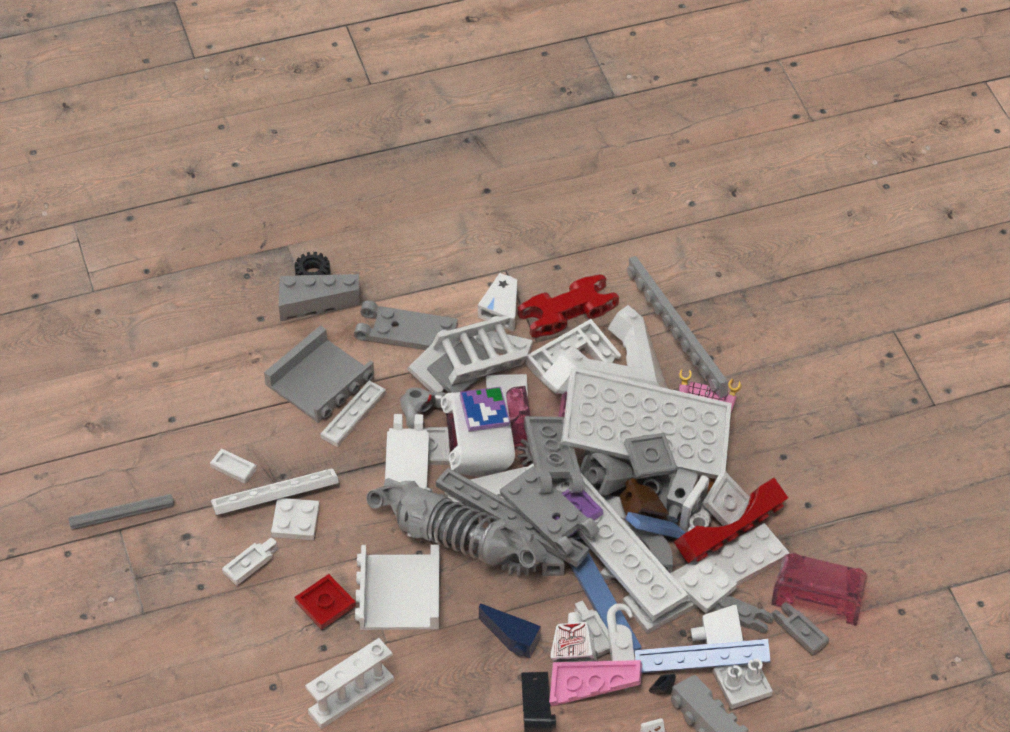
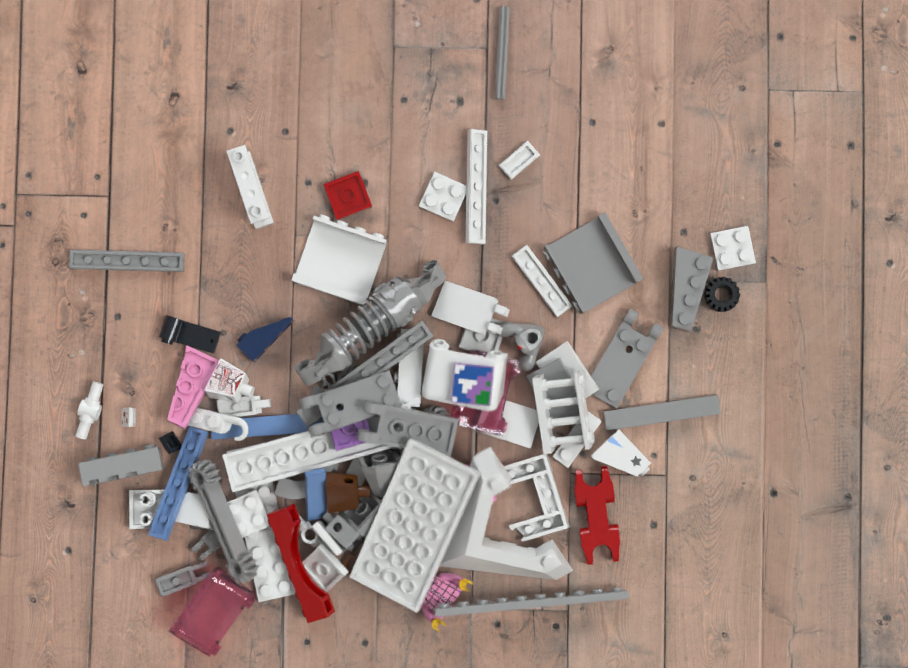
camera: 120 degrees right, 35 degrees up
(250, 561) = (410, 145): white hinge -> none
(261, 275) = (732, 248): none -> white plate
(446, 285) = (662, 412): none -> light grey tile
(650, 455) = (377, 514): light grey tile -> none
(721, 593) = (206, 480): none -> light grey arm

